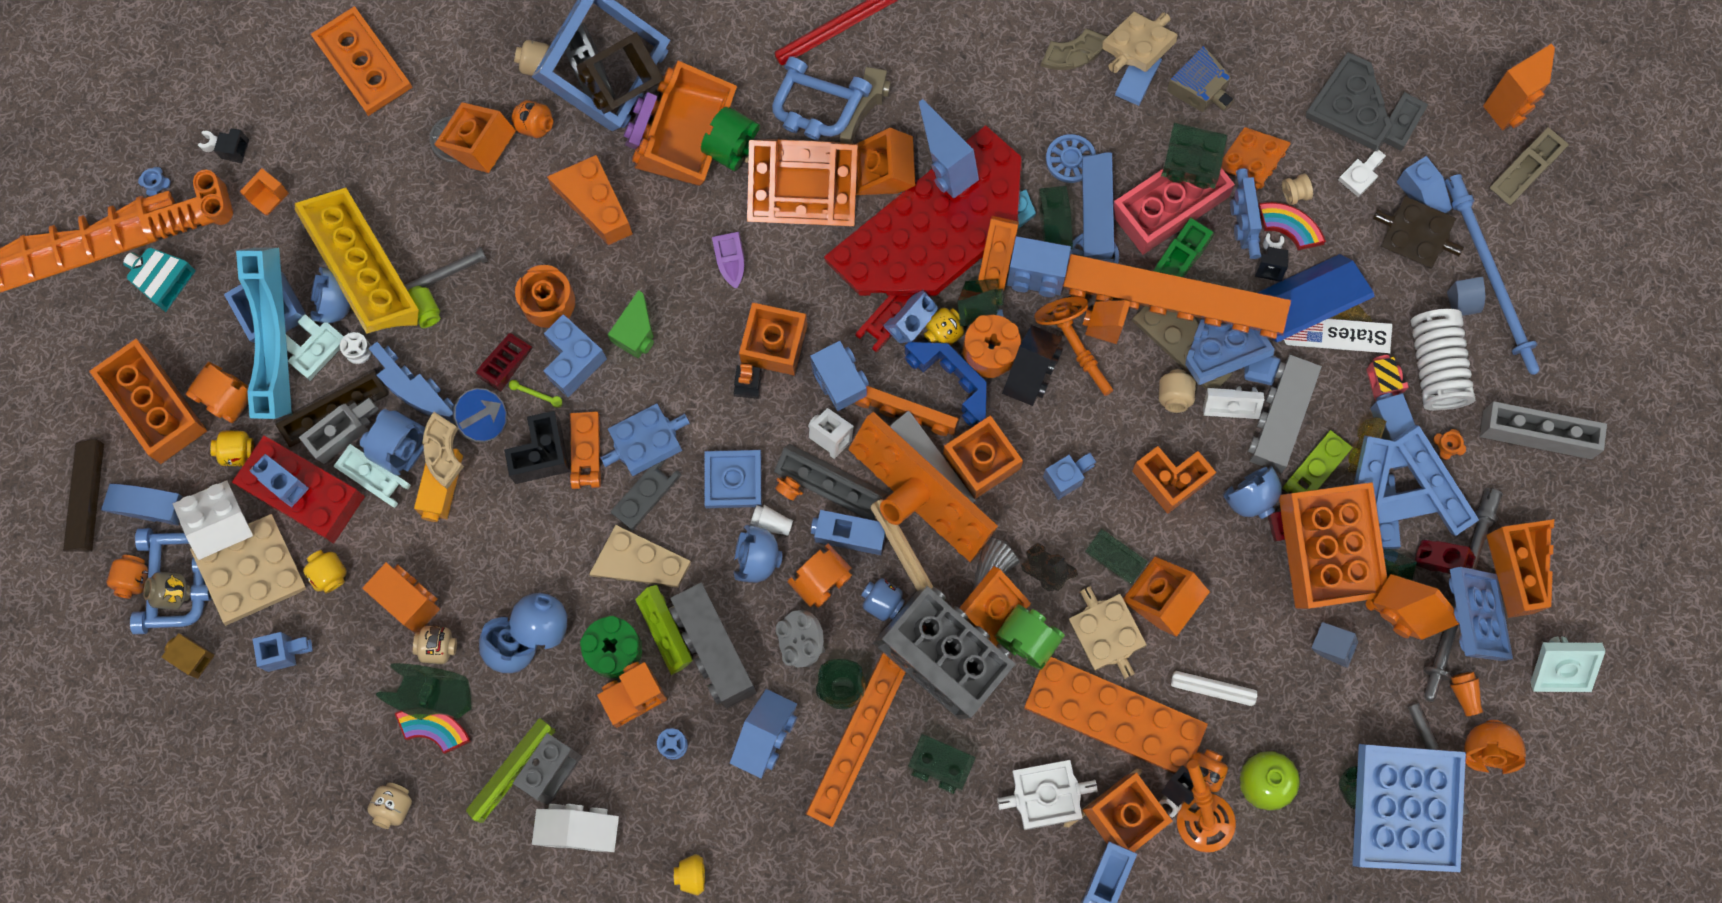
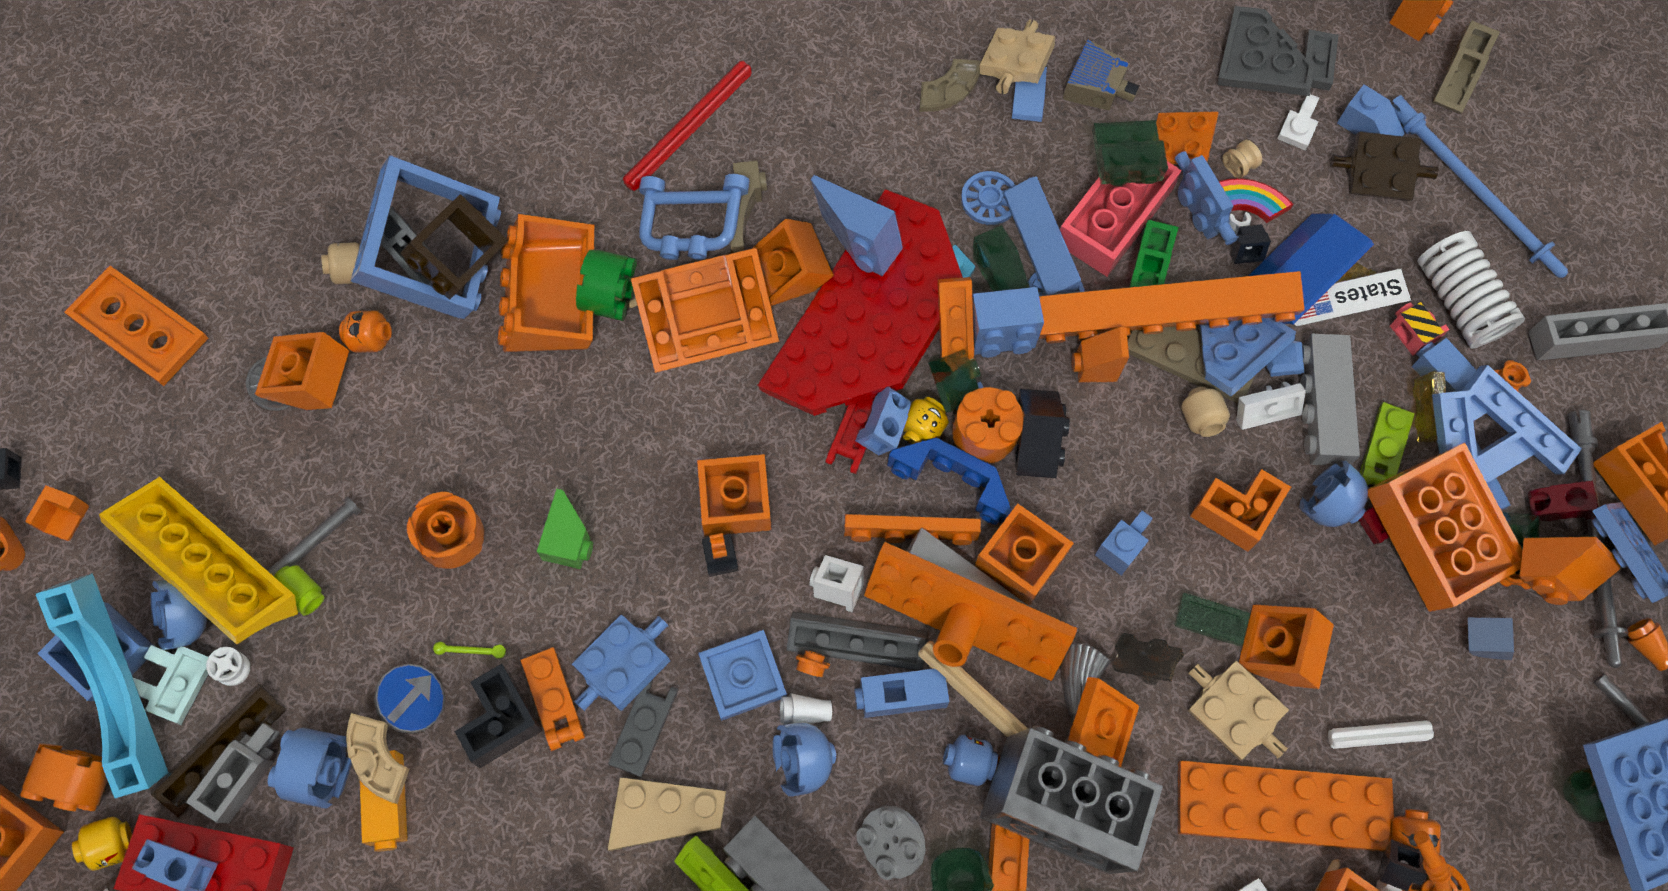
camera: 25 degrees left, 5 degrees down
(369, 475) = (291, 818): light aqua hinge -> none
(410, 389) = (313, 695): medium blue slope -> none
(500, 382) = (420, 651): dark red slope -> none
(577, 356) = (508, 589): medium blue brick -> none
(592, 198) = (466, 399): orange wedge -> none
(635, 130) = (492, 309): medium lavender plate -> none
(730, 257) = (650, 418): medium lavender plate -> none
(820, 575) = (890, 758): orange brick -> none
(838, 375) = (826, 513): medium blue brick -> none
(1029, 636) = (1158, 746): bright green brick -> none
(1063, 319) = (1052, 371): orange dish -> none
(1269, 780) = (1486, 821): lime cylinder -> none
(1467, 296) = (1463, 215): sand blue brick -> none

